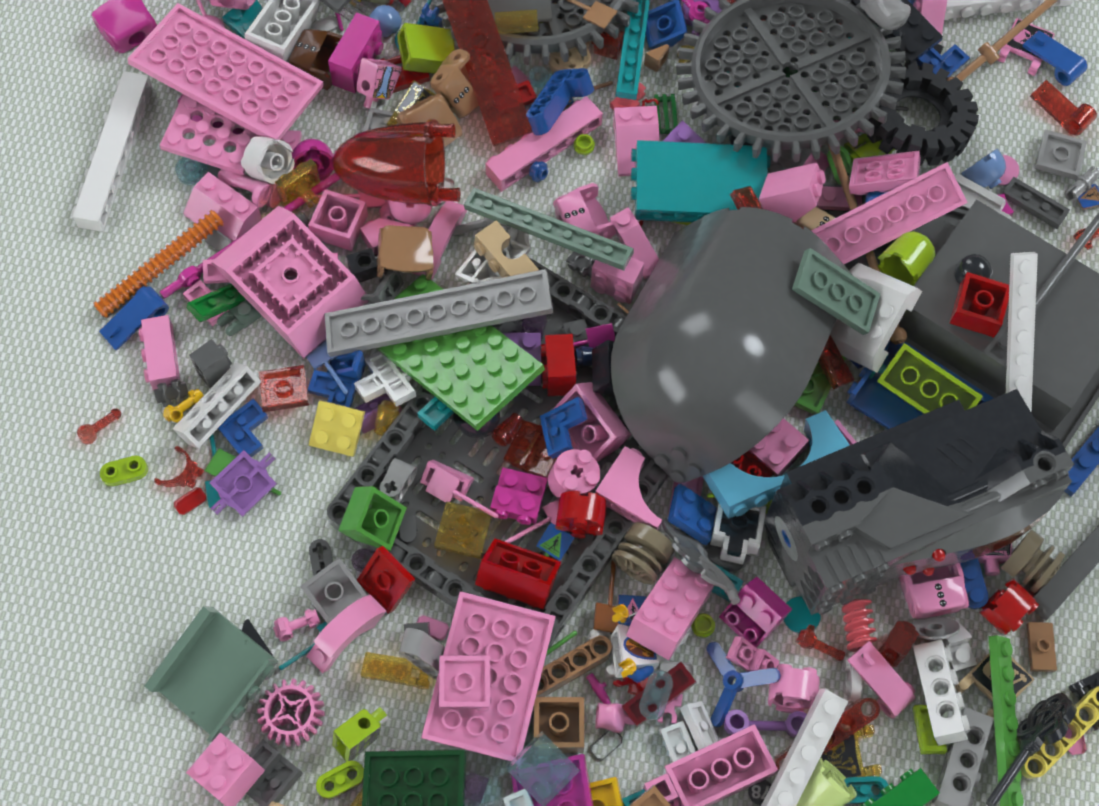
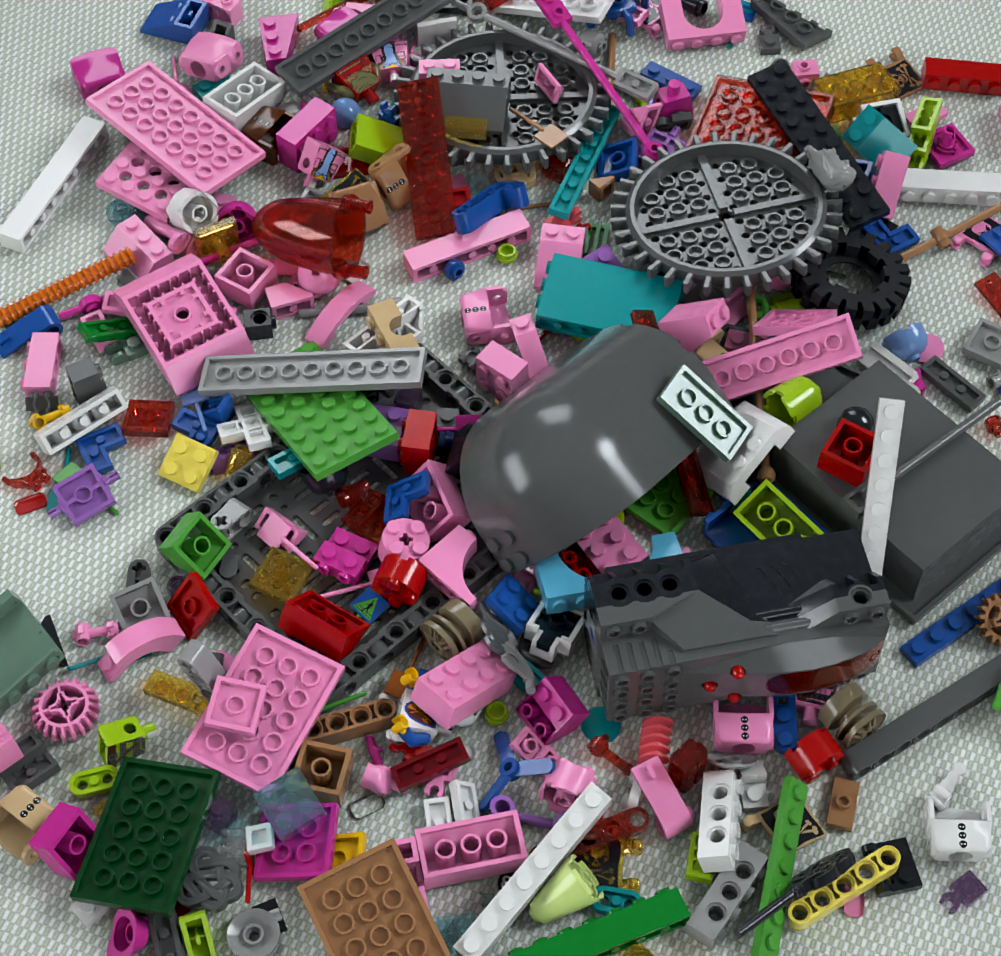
camera: 15 degrees right, 10 degrees down
(387, 289) = (277, 343): dark grey hinge -> none
(405, 250) = (299, 311): medium nougat piece -> none
(549, 229) = (443, 316): sand green plate -> none
(656, 695) = (423, 761): clear light blue plate -> none

